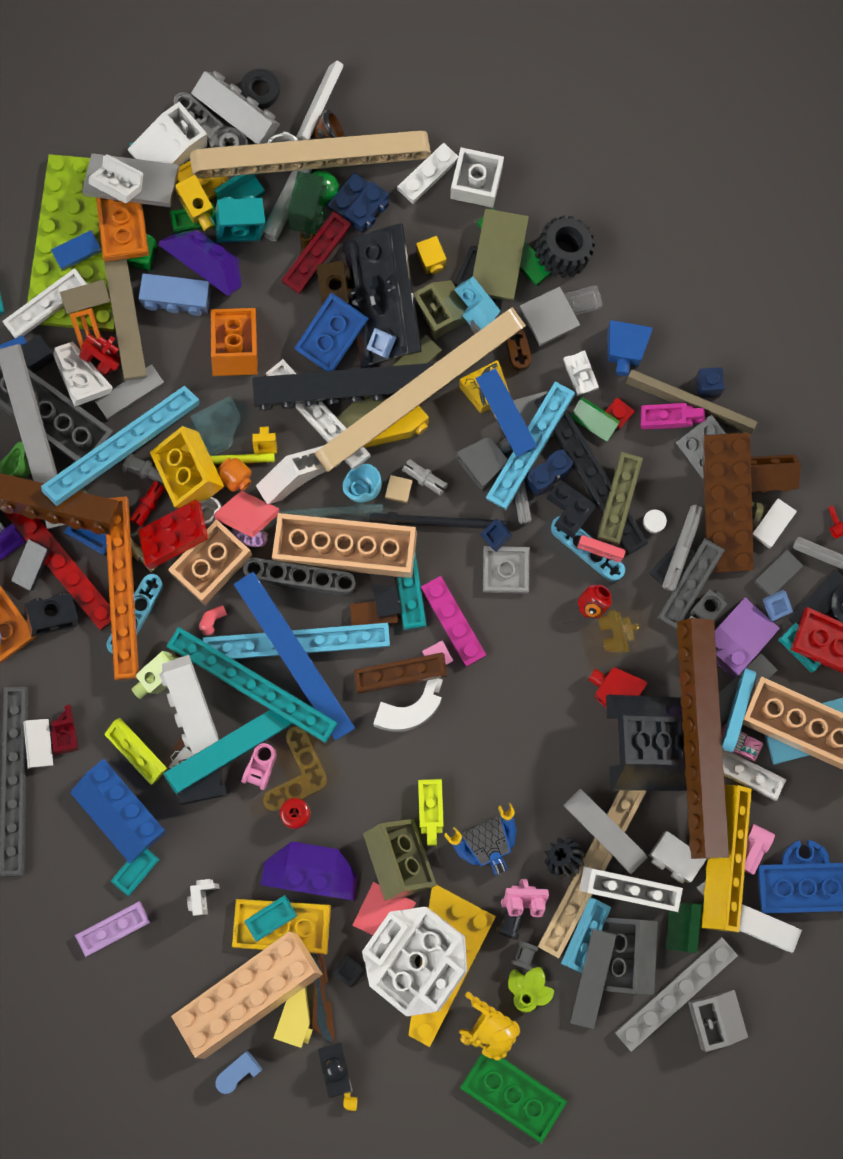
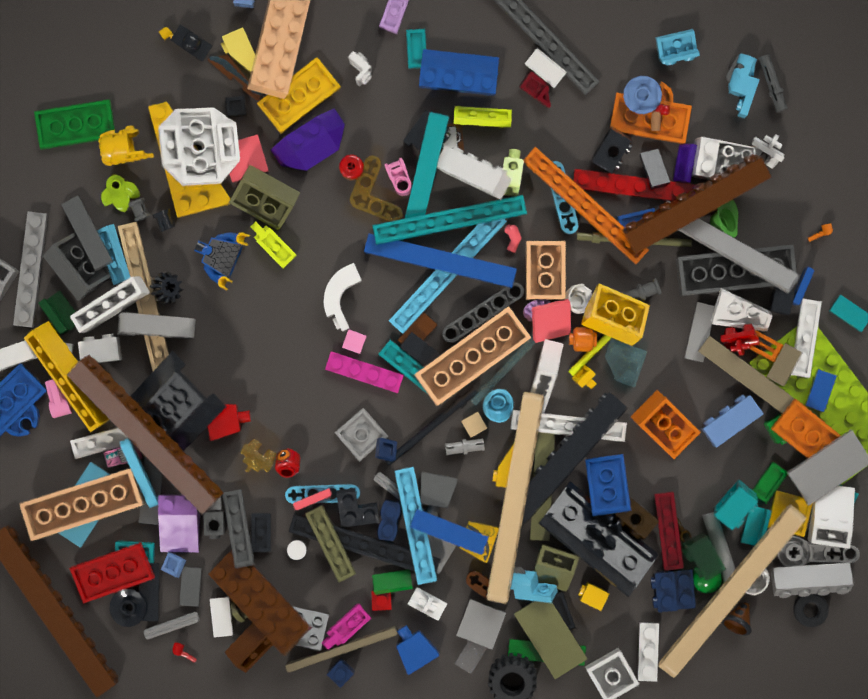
camera: 140 degrees right, 10 degrees up
(117, 179) = (835, 456): white bracket -> none
(119, 445) = (668, 290): medium azure plate -> none
(147, 503) = (620, 272): red pin -> none
(173, 534) = (584, 266): red plate -> none
(192, 196) = (781, 494): yellow torso -> none
(206, 259) = (733, 461): dark purple wedge -> none
(271, 918) = (308, 93): teal tile -> none
(319, 101) = (762, 634): white tile -> none
(381, 343) = (569, 505): medium blue tile -> none
(400, 673) = (366, 309): reddish brown tile -> none
(525, 897) = (170, 244): bright pink hips -> none
(682, 548) = (263, 547): light grey axle -> none

